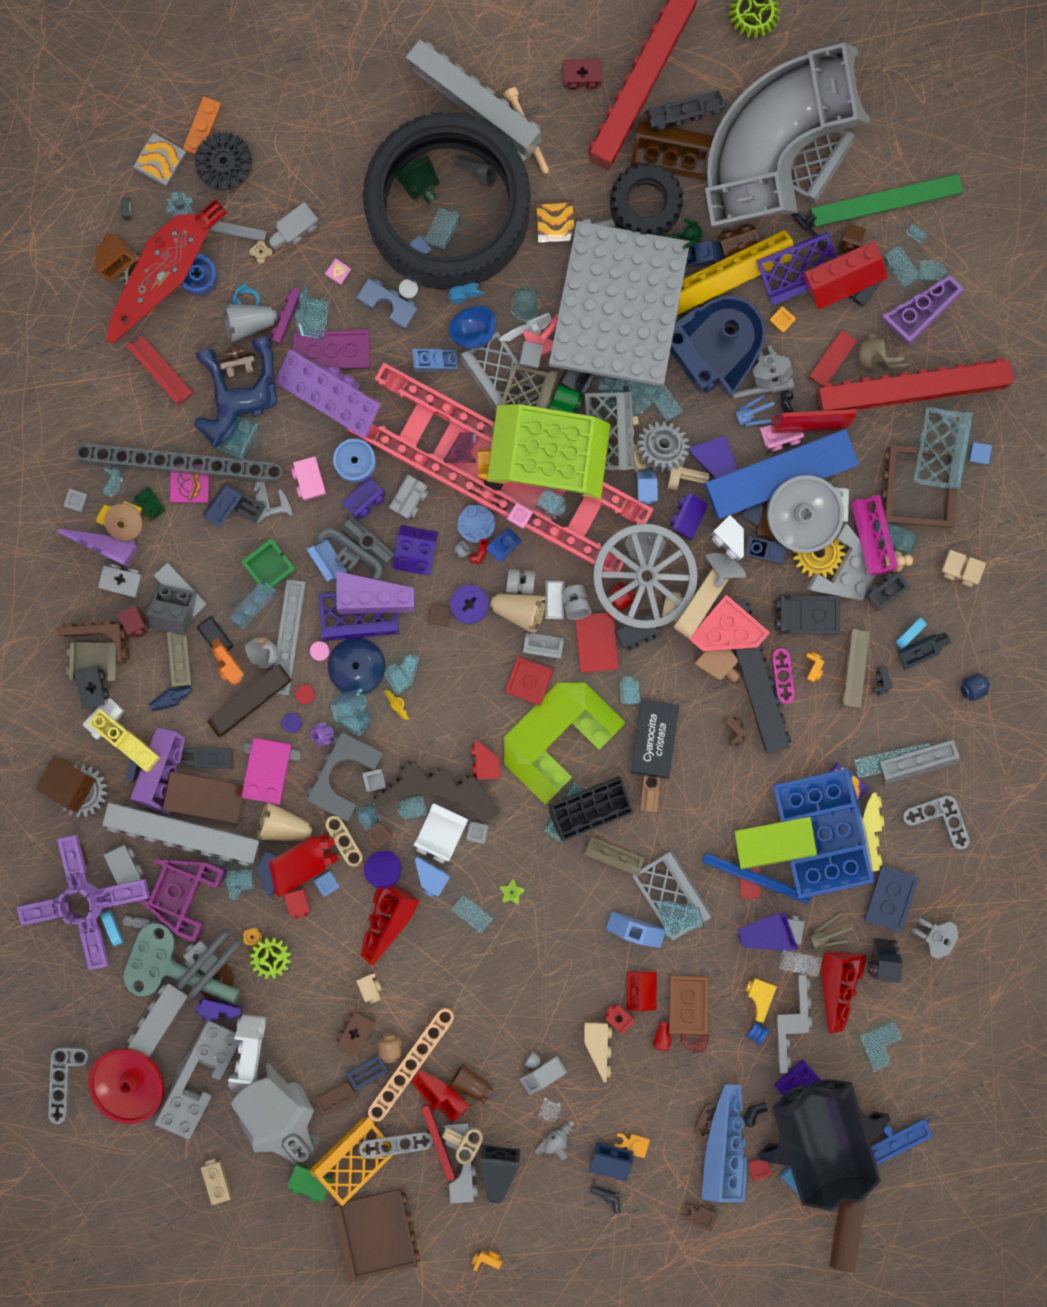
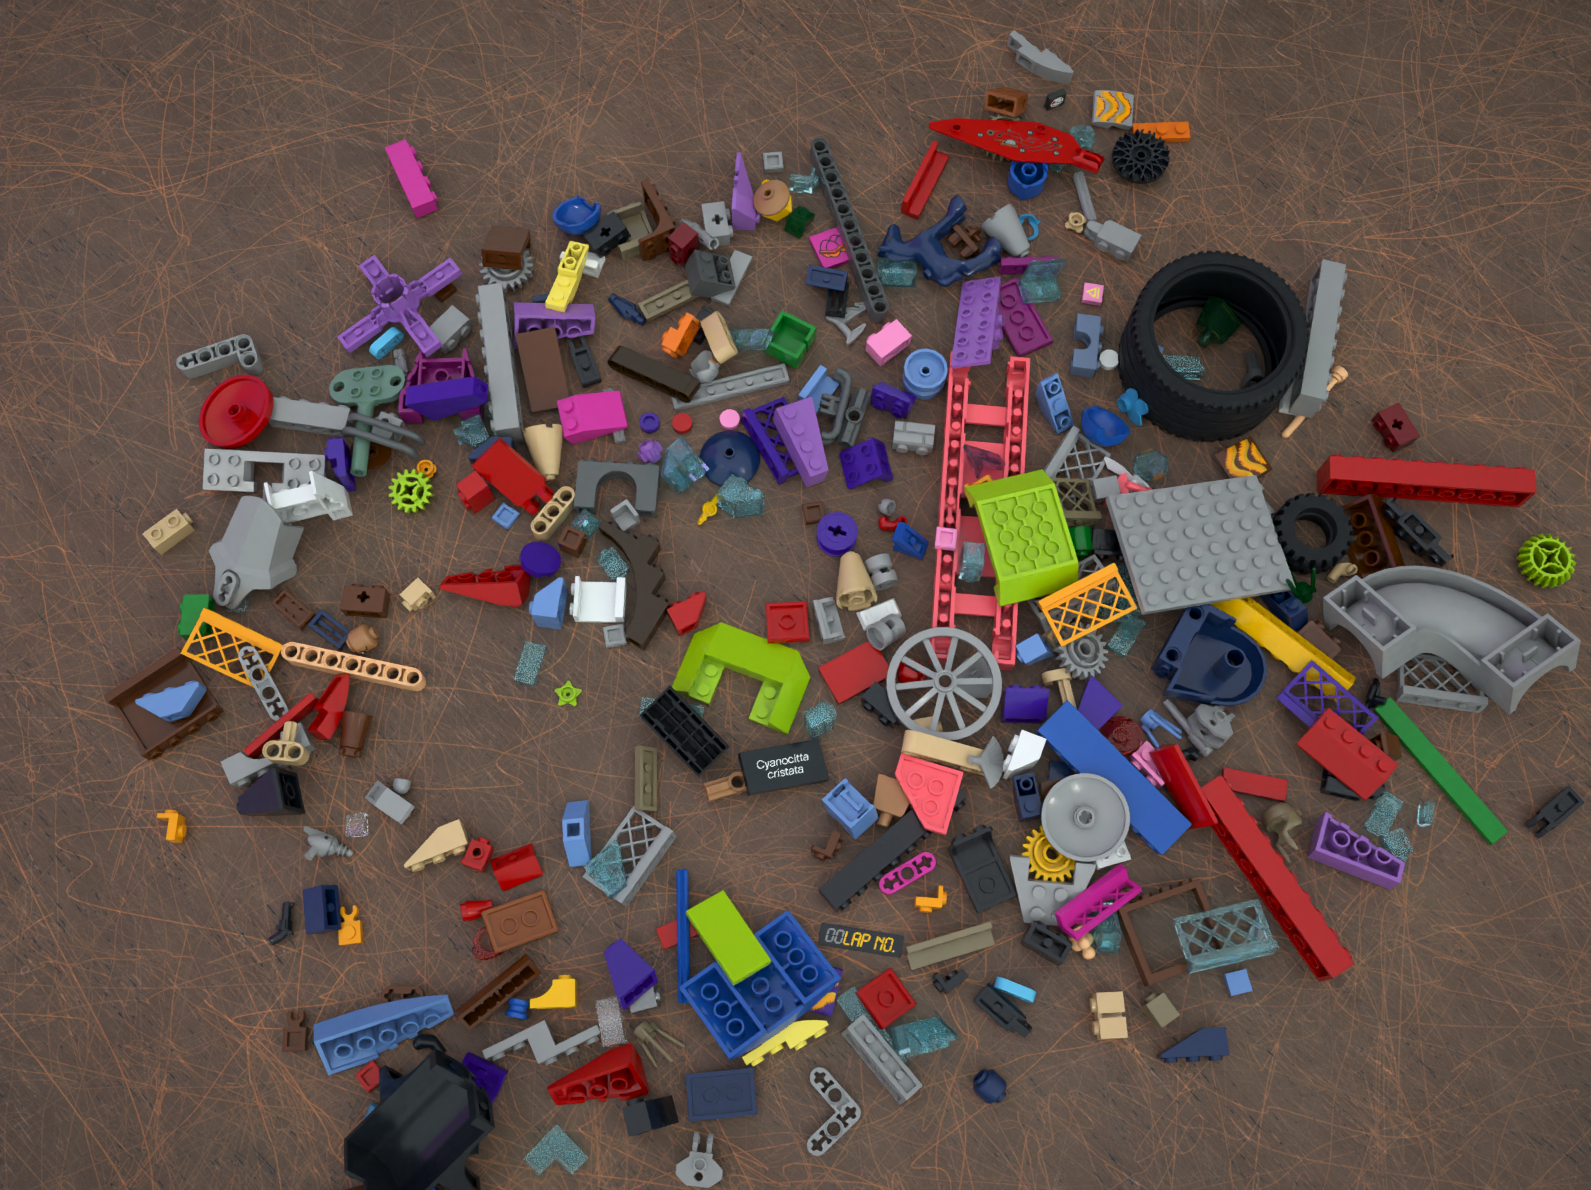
camera: 70 degrees right, 15 degrees down
(59, 706) = (576, 215): none -> blue cylinder
(84, 200) = (1042, 64): none -> light grey slope
(122, 604) = (704, 237): none -> light grey pin
(203, 893) = (446, 397): none -> dark purple slope
(242, 628) = (719, 337): none -> tan beam
(380, 1227) = (174, 702): none -> medium blue slope
(476, 523) = (919, 509): medium blue dish -> none
(615, 426) = (1078, 588): none -> light orange fence
(687, 185) = (1341, 569): none -> tan arm
(712, 699) = (849, 809): none -> medium blue piece
(738, 1044) = (497, 992): none -> reddish brown brick
(748, 447) = (1123, 734): none -> clear red tile
(782, 319) = (1266, 716): light orange plate -> none
(819, 736) = (861, 940): none -> black sticker
(874, 738) = (886, 998): none -> red tile
(917, 723) = (922, 1036): none -> clear light blue slope
(959, 125) = (1556, 810): none -> black hinge
(975, 526) = (1160, 1009): none -> dark tan brick
(1013, 509) = (1200, 1043): none -> dark blue slope

